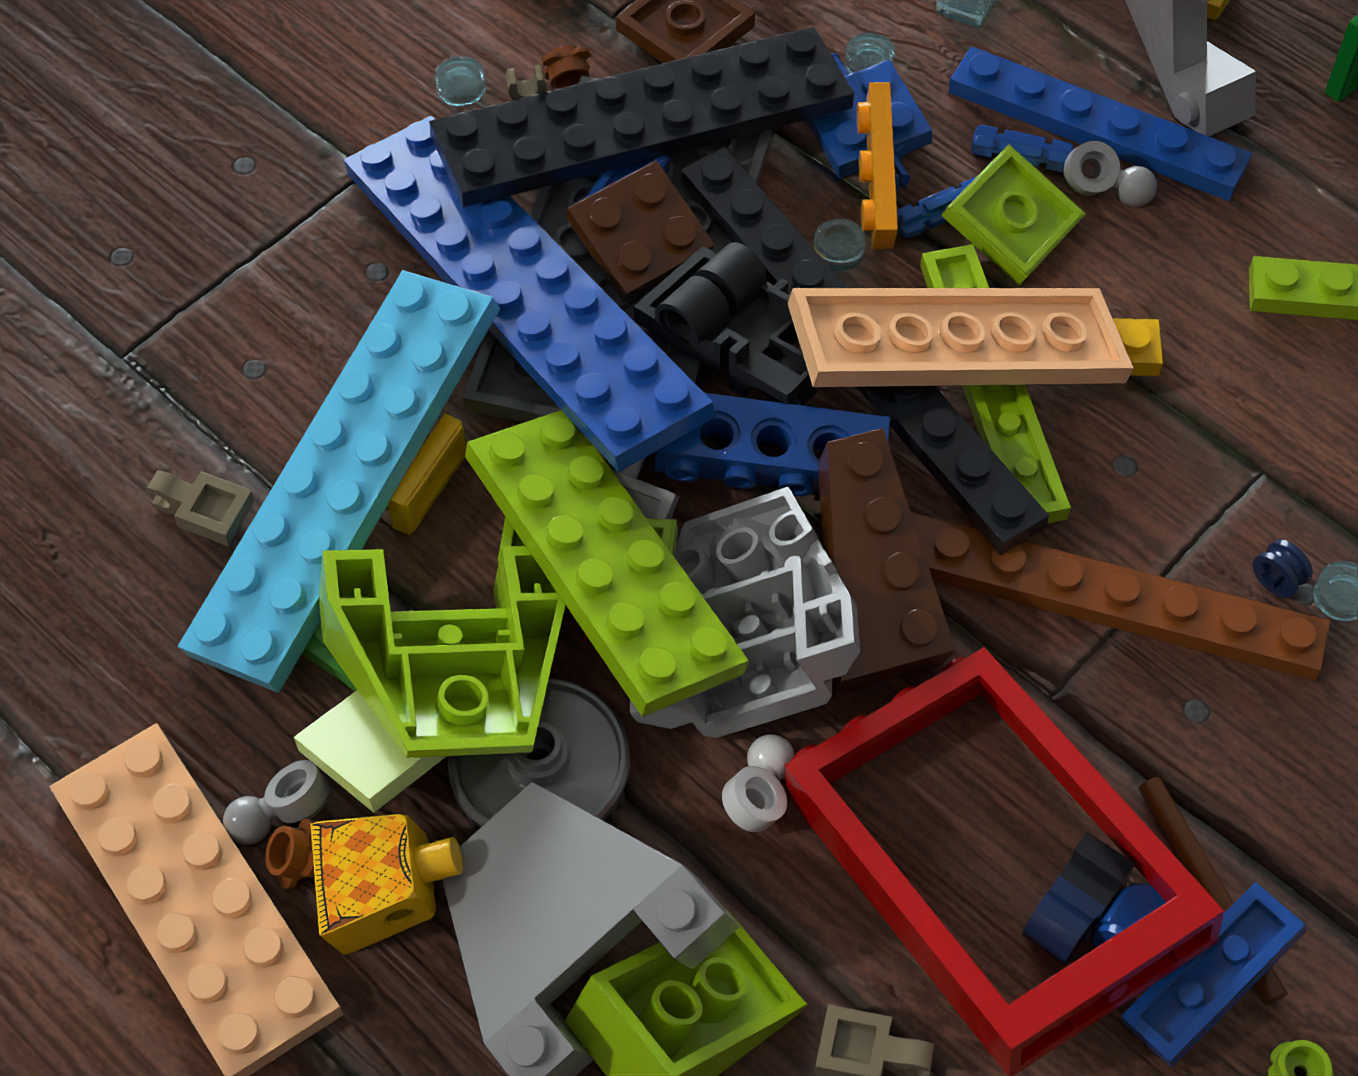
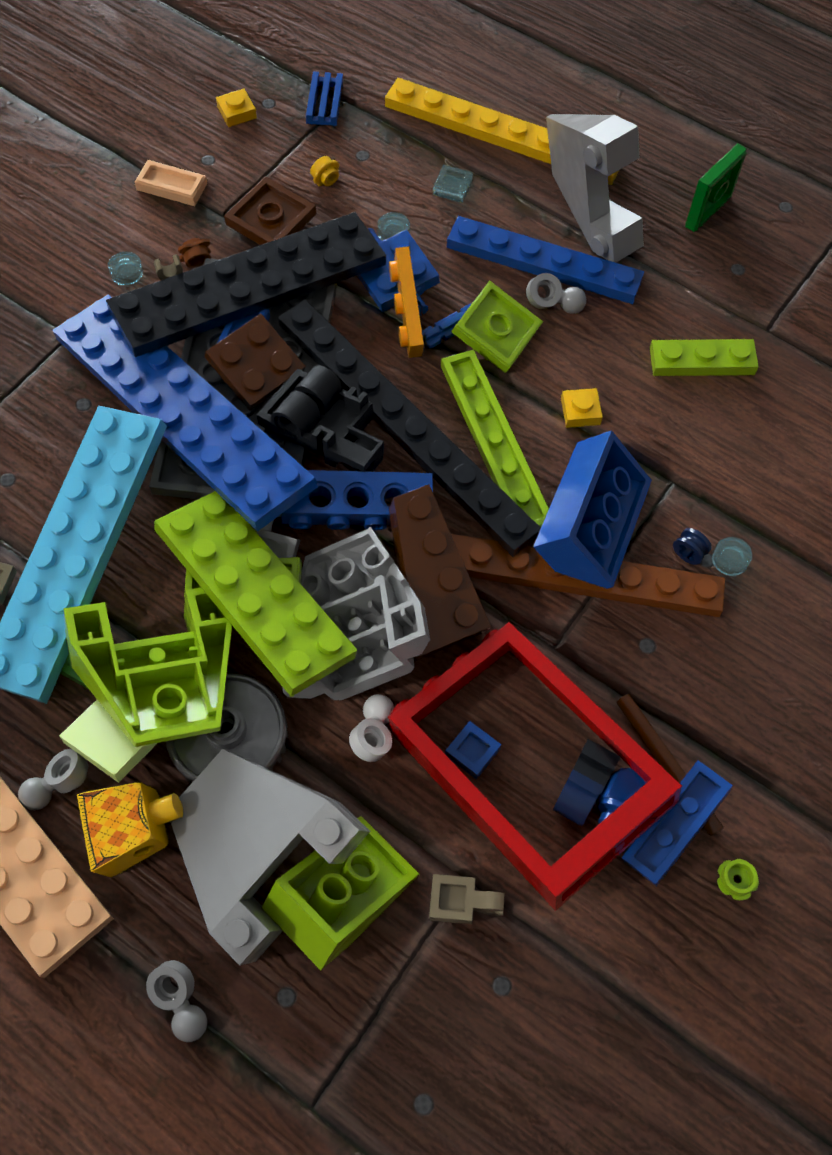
camera: 10 degrees left, 5 degrees up
(291, 854) = (66, 814): dark orange plate -> none
(428, 474) = (131, 542): yellow tile -> none
(840, 244) = (387, 356): clear light blue tile -> none
(910, 832) = (473, 750): none -> blue tile
(957, 336) = (469, 414): light nougat plate -> none
(1031, 147) = (503, 280): blue axle -> none
(1134, 499) = (594, 511): none -> blue slope

